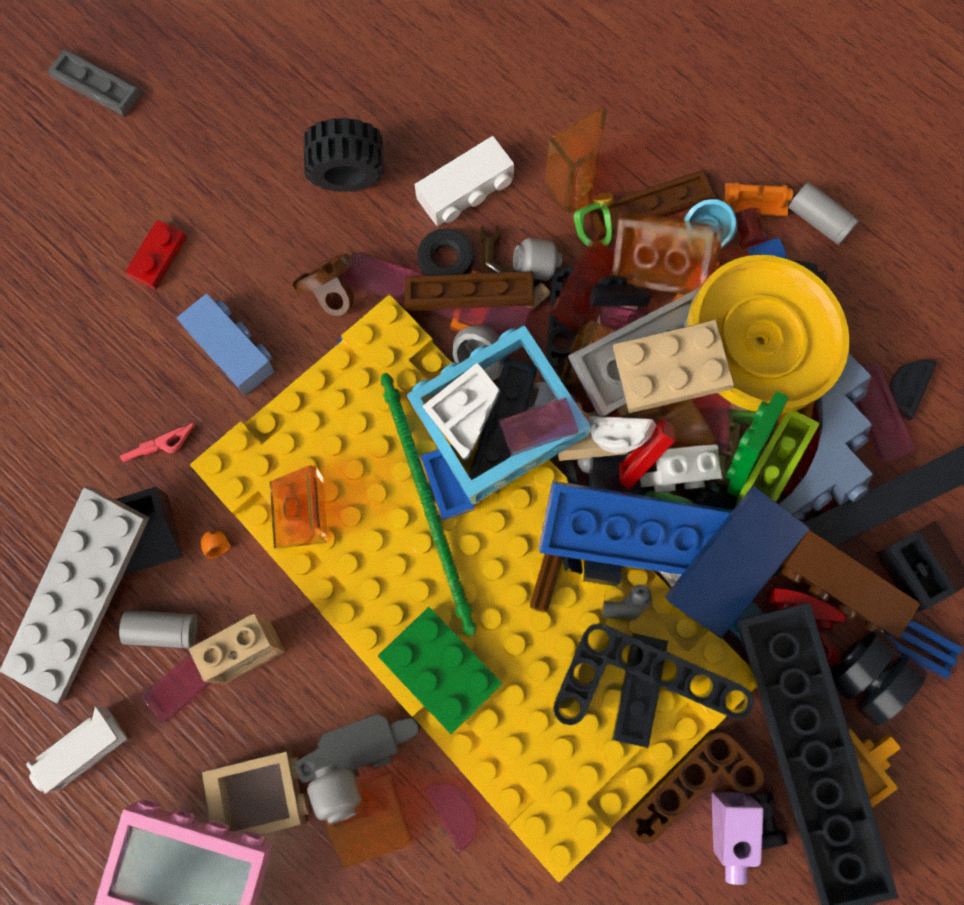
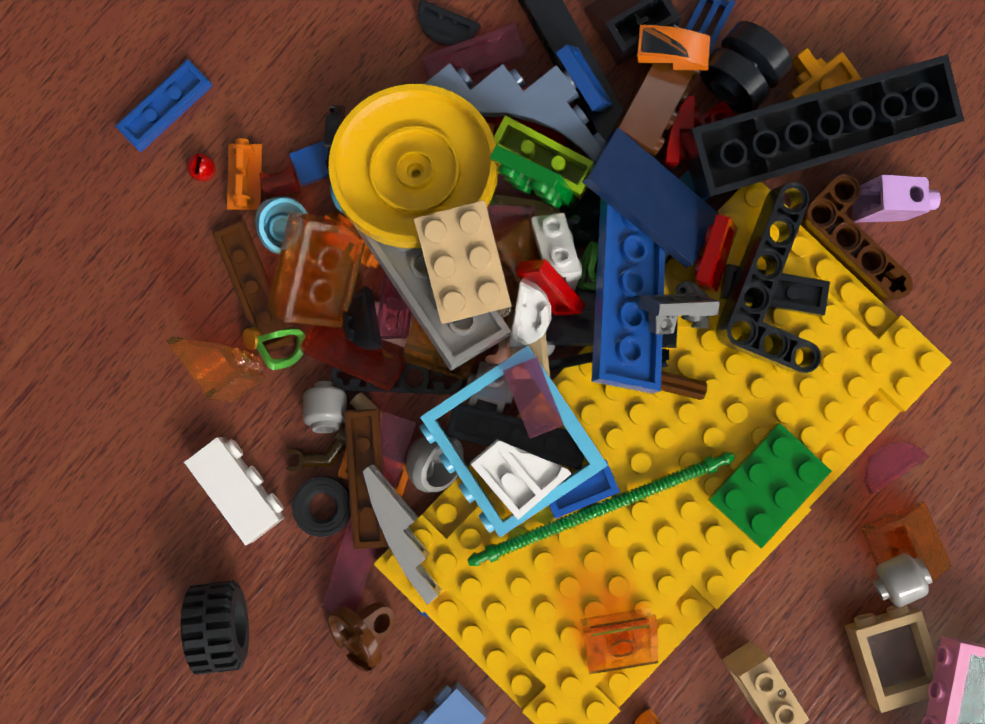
camera: 95 degrees left, 10 degrees up
(357, 746) = (842, 562): dark grey hinge -> none
(427, 307) = (394, 519): none -> light grey slope
(622, 561) = (665, 309): none -> dark grey hinge
(679, 628) = (718, 242): none -> red plate
(765, 163) = (206, 170): none -> red hinge
(771, 835) = (892, 165): black piece -> none
(823, 133) = (164, 105): none -> blue tile
(823, 213) = (261, 106): light grey pin -> none
(859, 506) = (584, 78): none -> blue tile
(897, 596) = (673, 45): none -> slope

